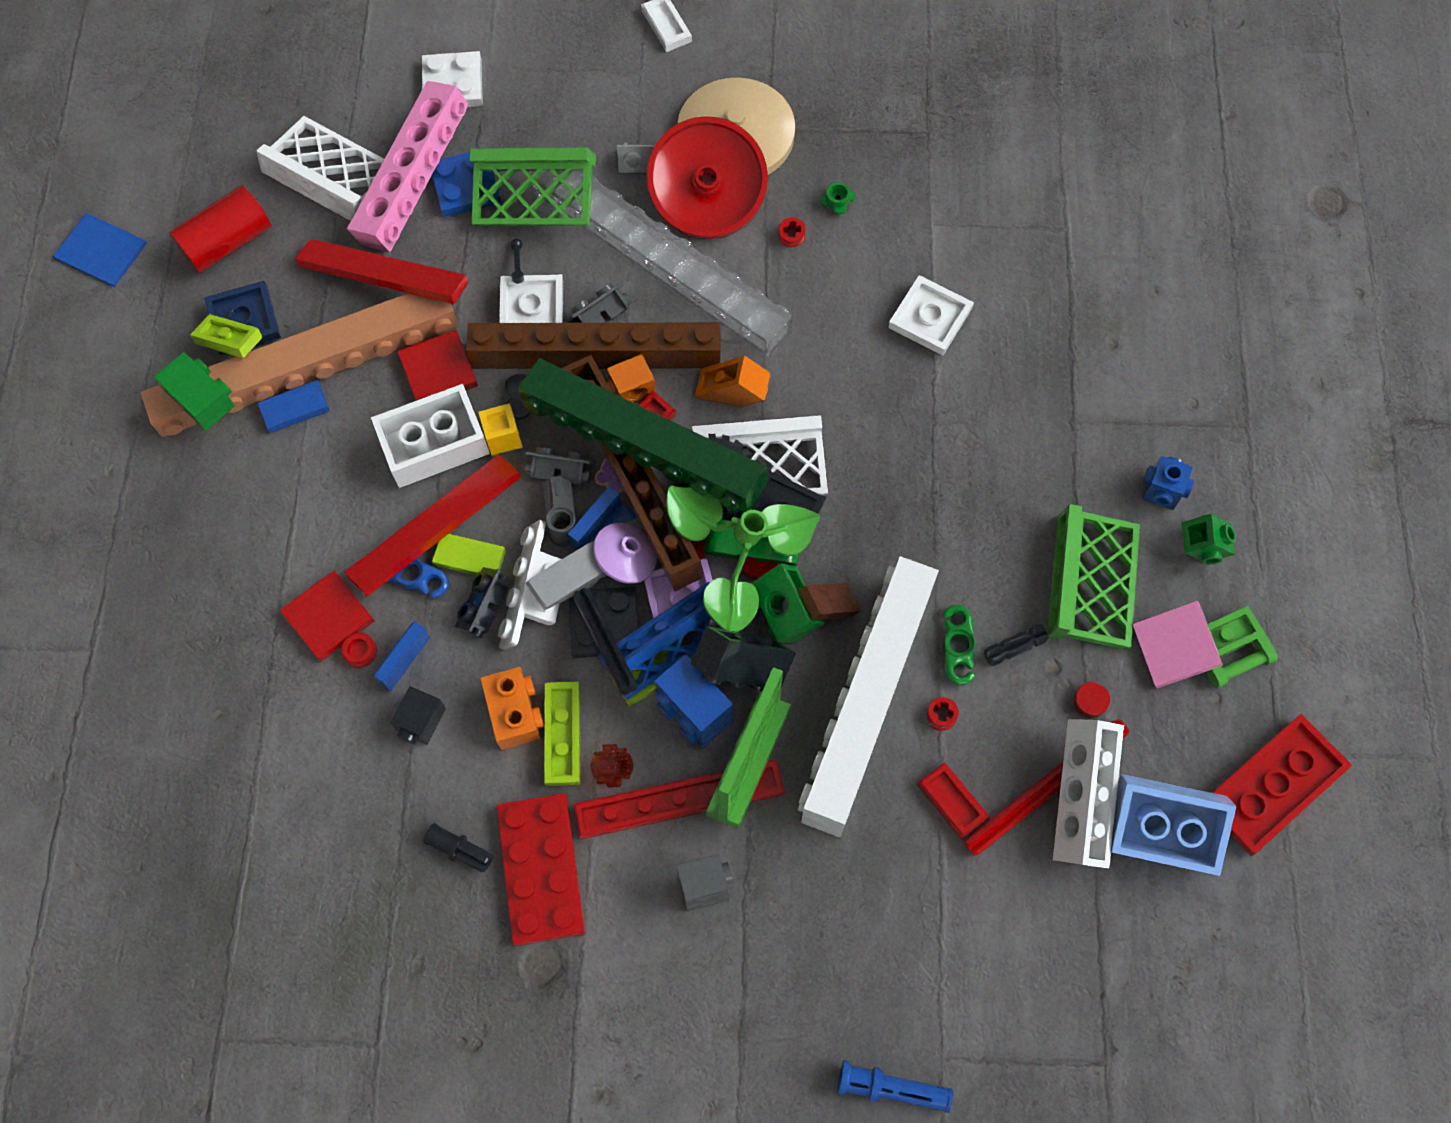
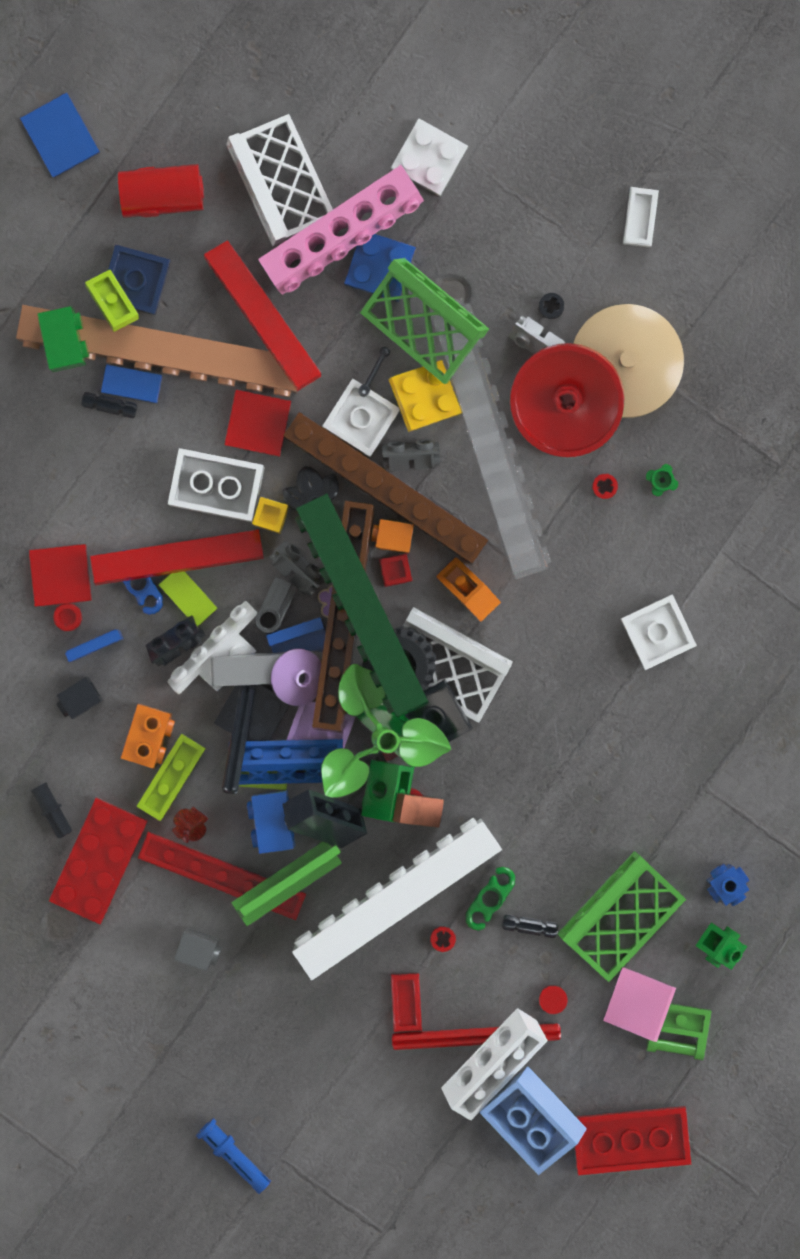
camera: 35 degrees right, 20 degrees up
(282, 436) = (109, 405): none -> black axle
(577, 254) = (424, 397): none -> yellow plate
(639, 117) = (556, 313): none -> black bush

